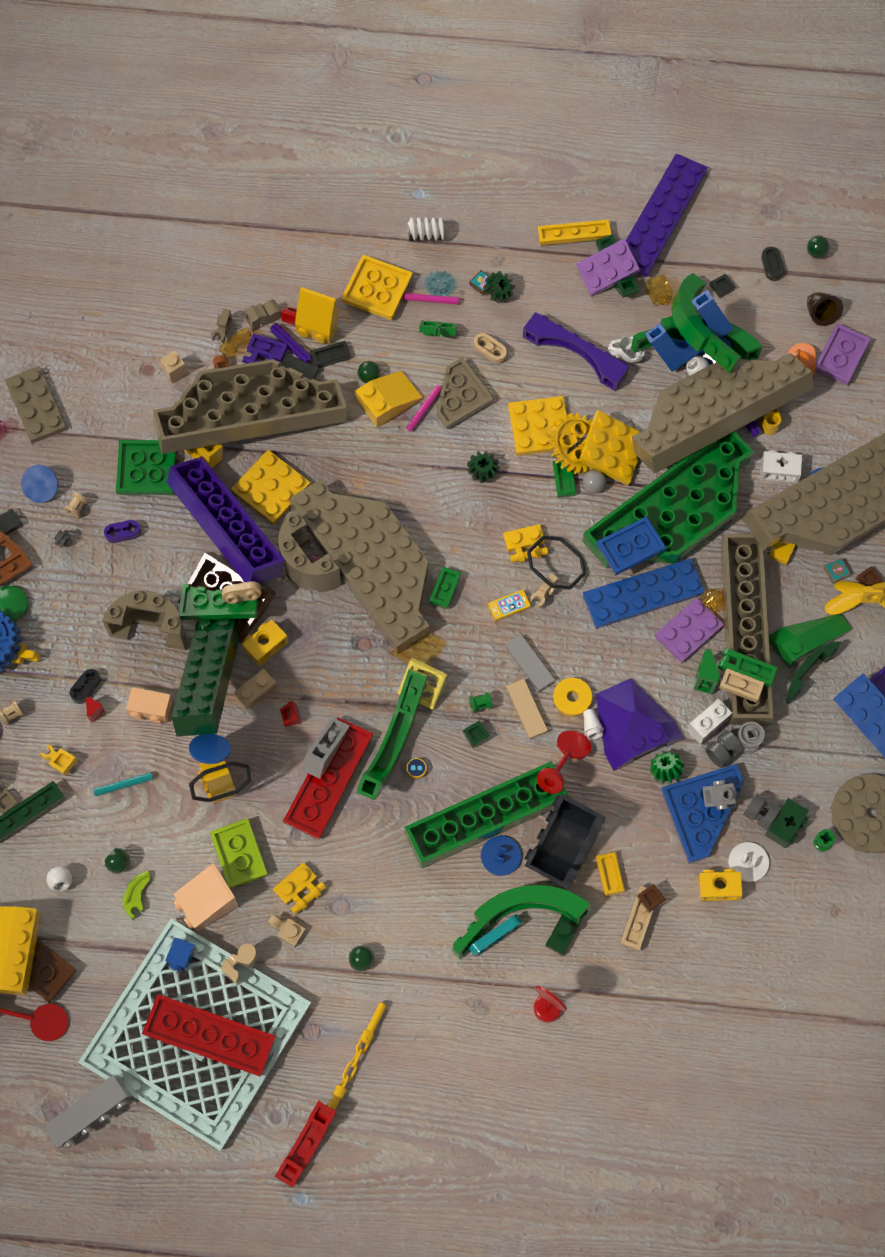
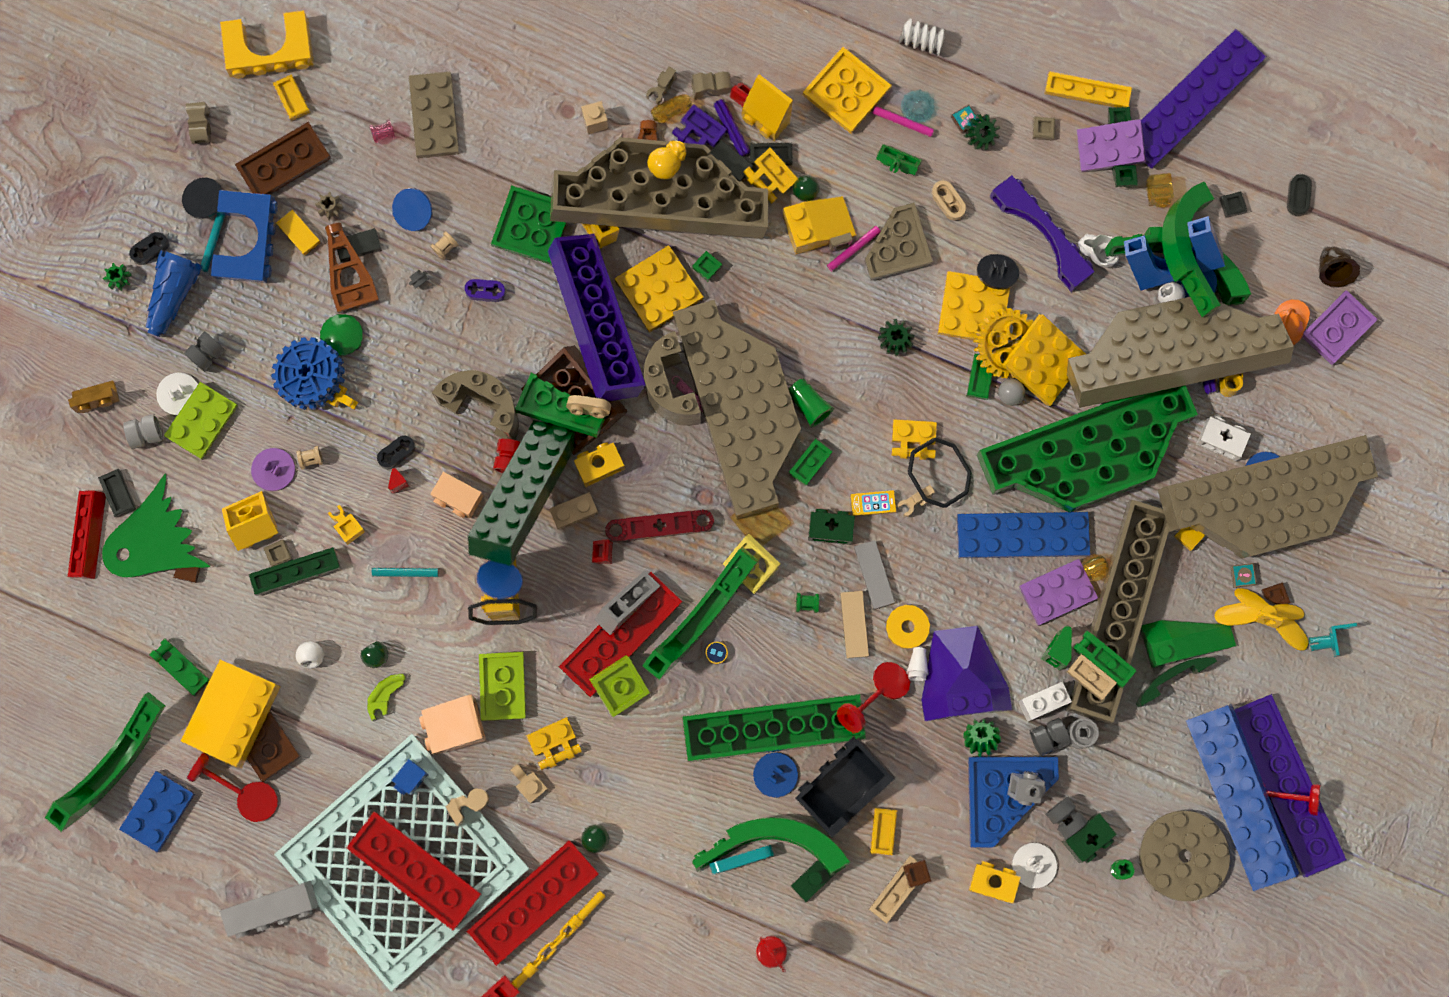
camera: 15 degrees right, 10 degrees up
(180, 654) = (506, 450): none -> red wheel
(246, 377) = (667, 160): none -> yellow hair
(305, 456) = (707, 266): none -> green plate
(323, 1031) = (532, 902): none -> red plate
(337, 364) = (775, 171): none -> yellow plate
(341, 820) = (619, 686): none -> lime plate
(346, 671) = (676, 524): none -> dark red piece
(411, 405) = (840, 242): none -> dark tan tile
(429, 539) = (810, 402): none -> green plant
(473, 642) = (840, 535): none -> dark green brick
(476, 734) = (791, 636): dark green plate -> none
(548, 271) = (1043, 128): none -> dark tan tile
(549, 391) = (997, 271): none -> black piece
(631, 546) = (1025, 482): blue tile -> none
(818, 246) = (1357, 192): dark green piece -> none

